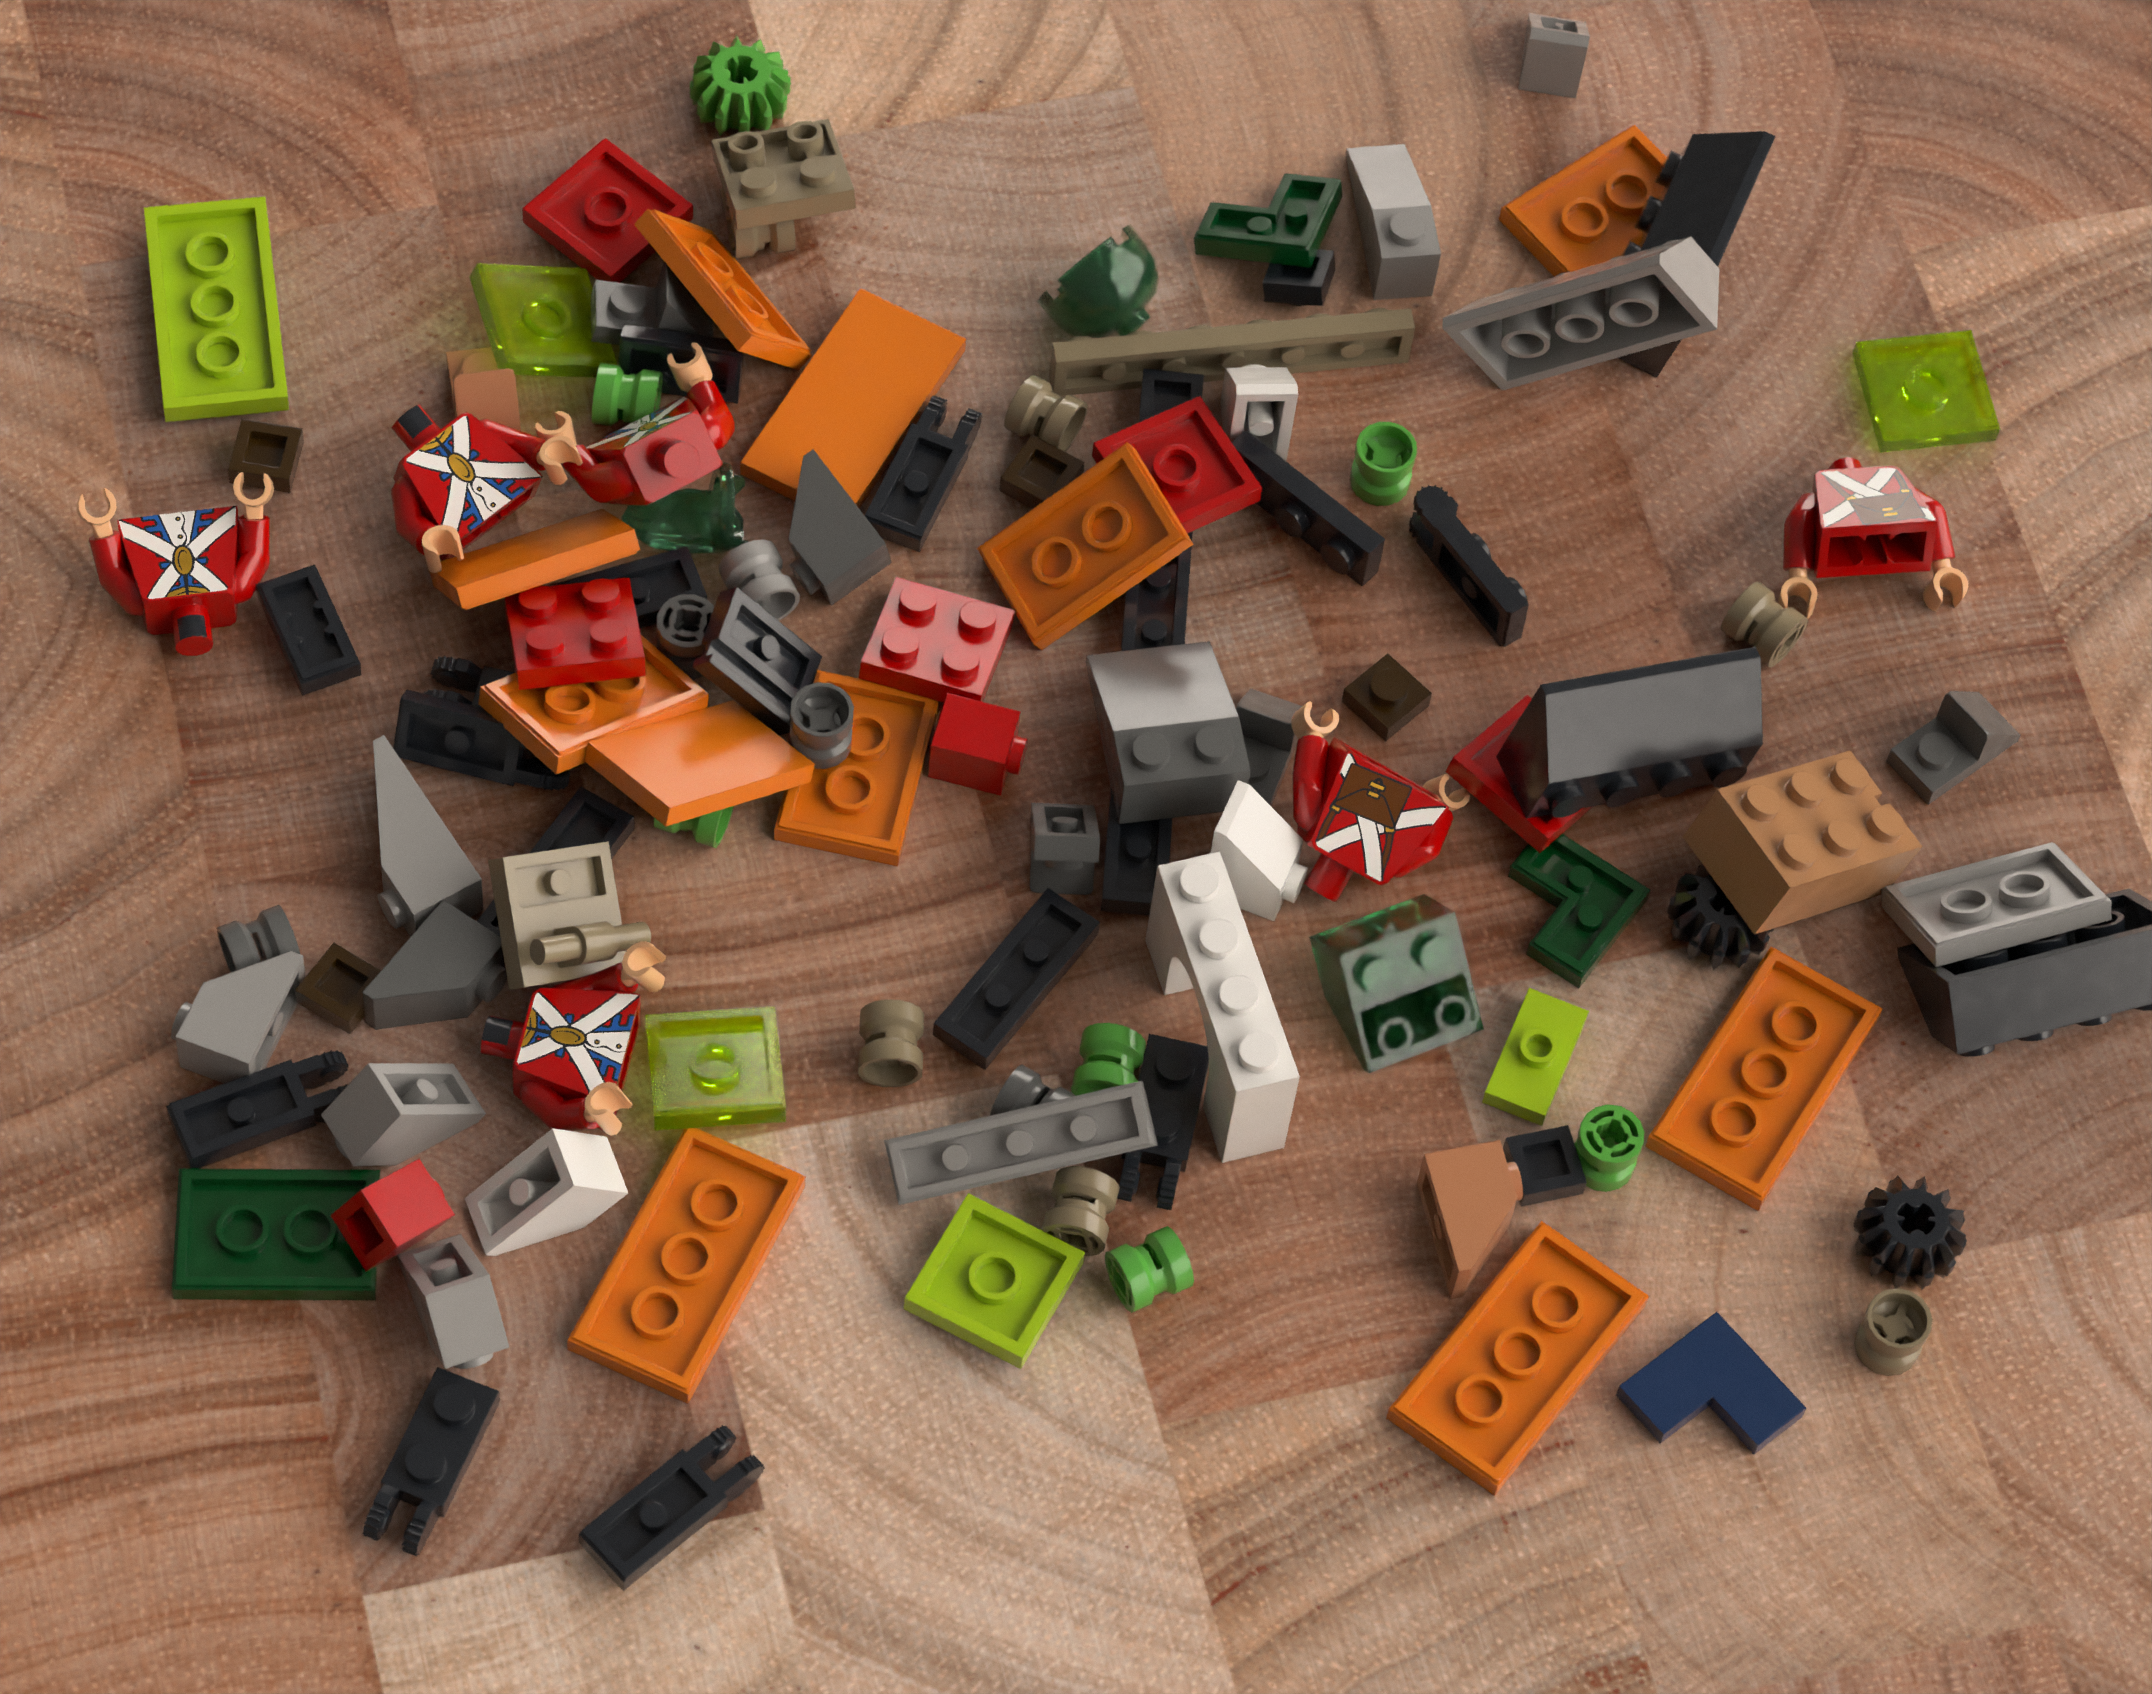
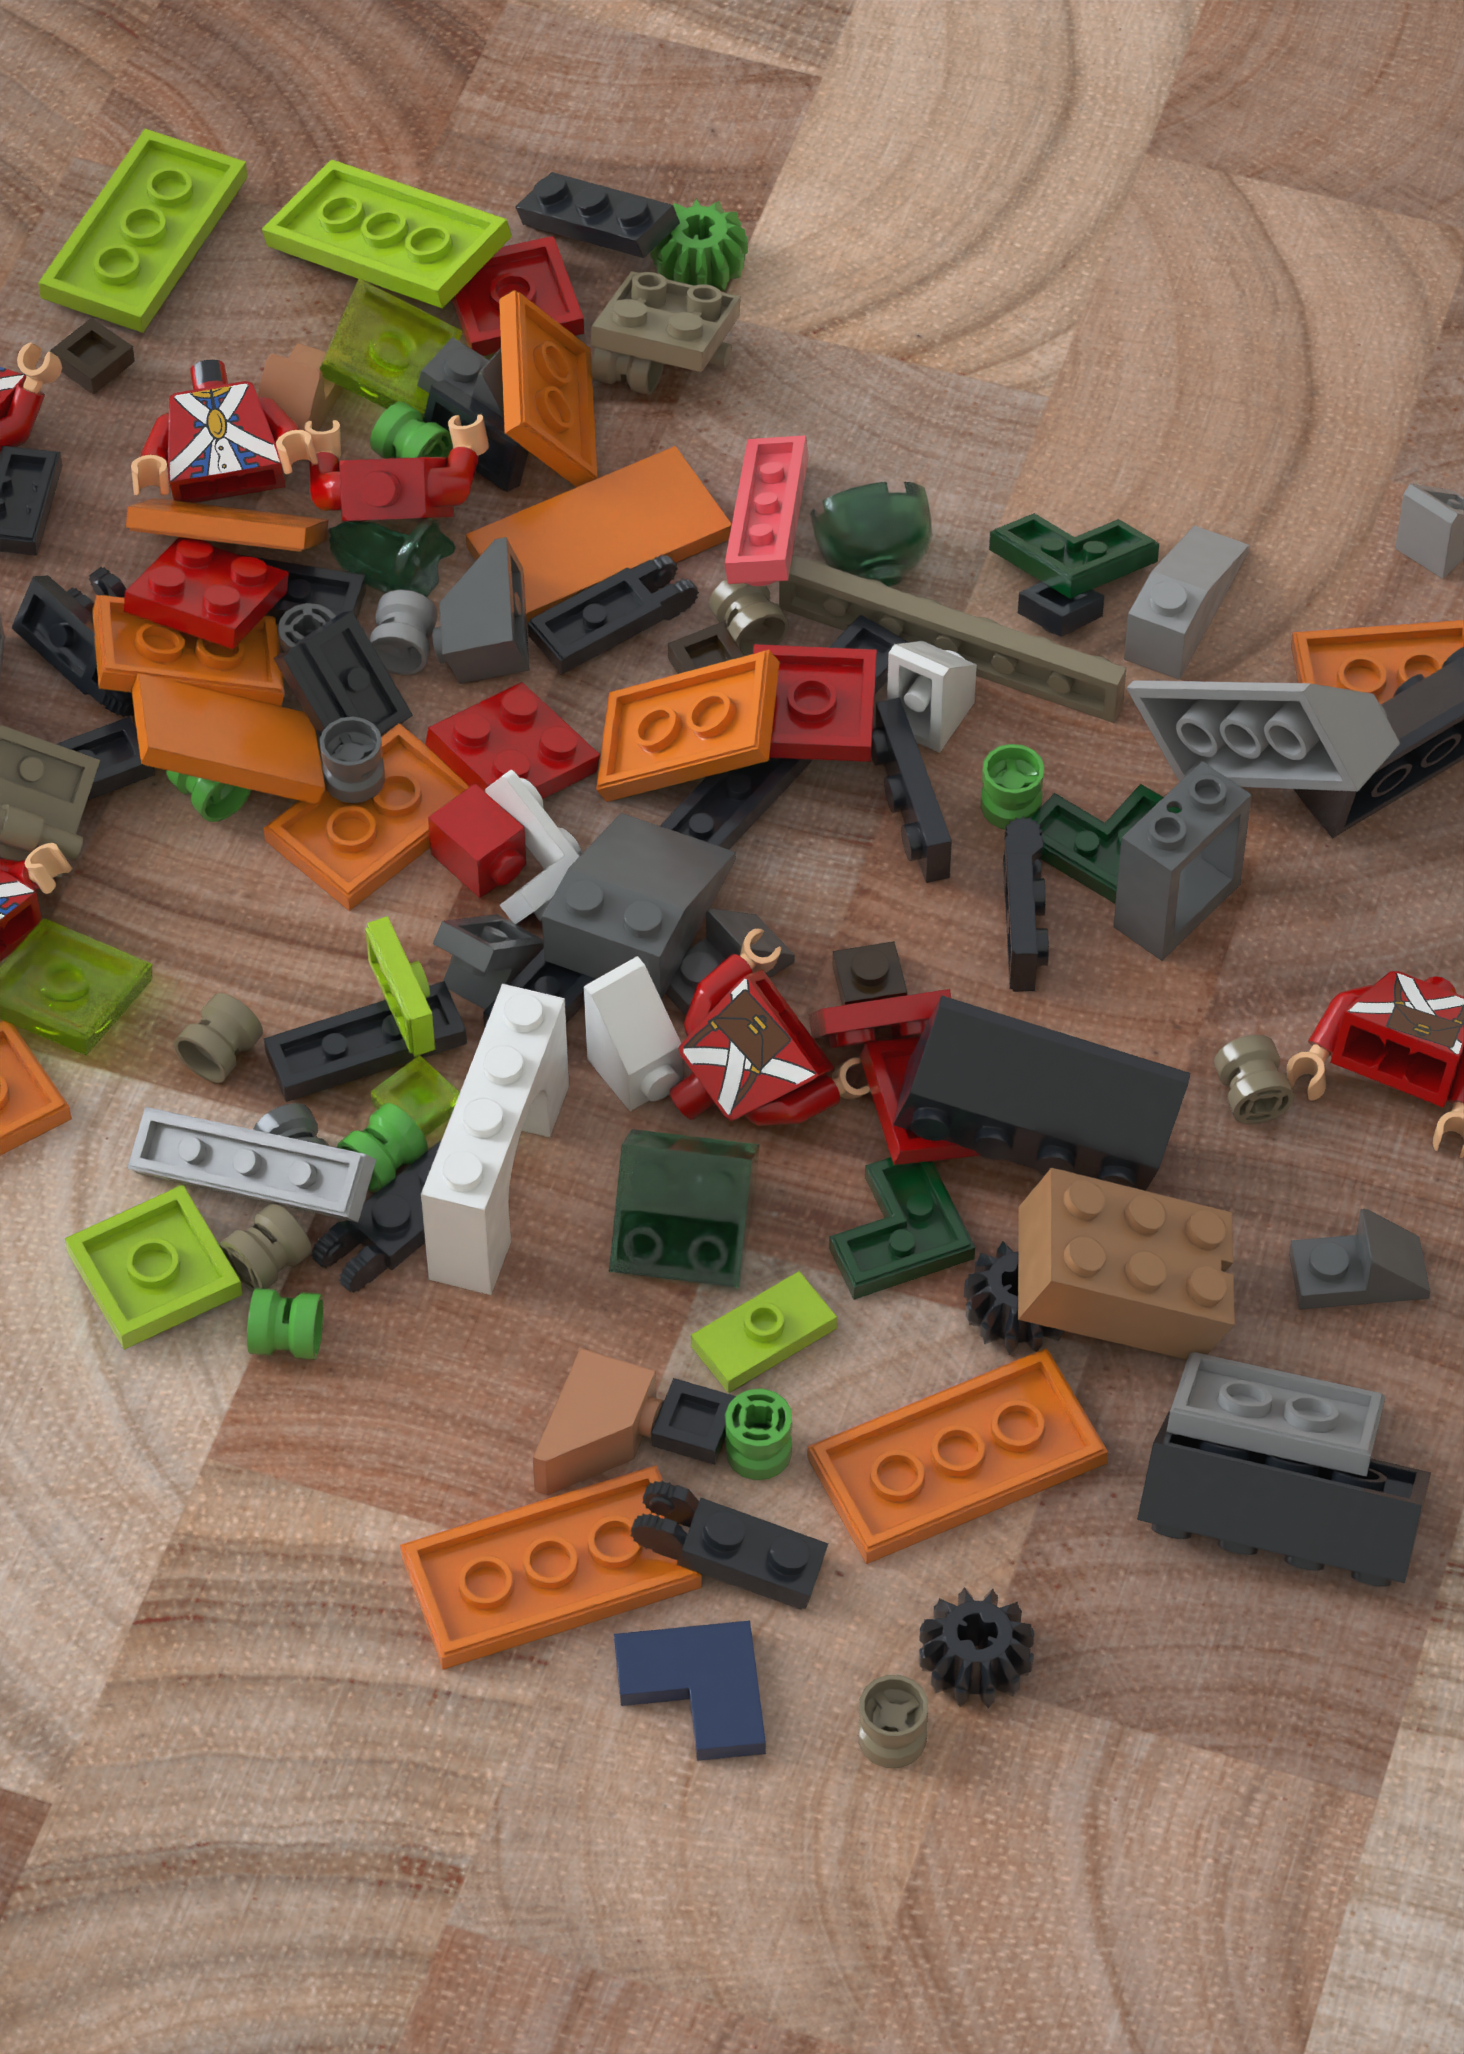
camera: 40 degrees right, 5 degrees down
(456, 206) = (387, 233): none -> lime plate
(633, 99) = (597, 214): none -> black plate
(1002, 310) = (767, 510): none -> coral plate
(1031, 912) = (402, 986): none -> lime plate
(1065, 729) = (549, 844): none -> white bracket
(1099, 999) = (420, 1093): none -> clear neon green plate
(1442, 725) = (856, 1022): none -> red plate
(1500, 478) = (1087, 846): none -> dark green tile
(1589, 460) = (1183, 862): none -> dark grey window
(1659, 1255) = (729, 1544): none -> black hinge

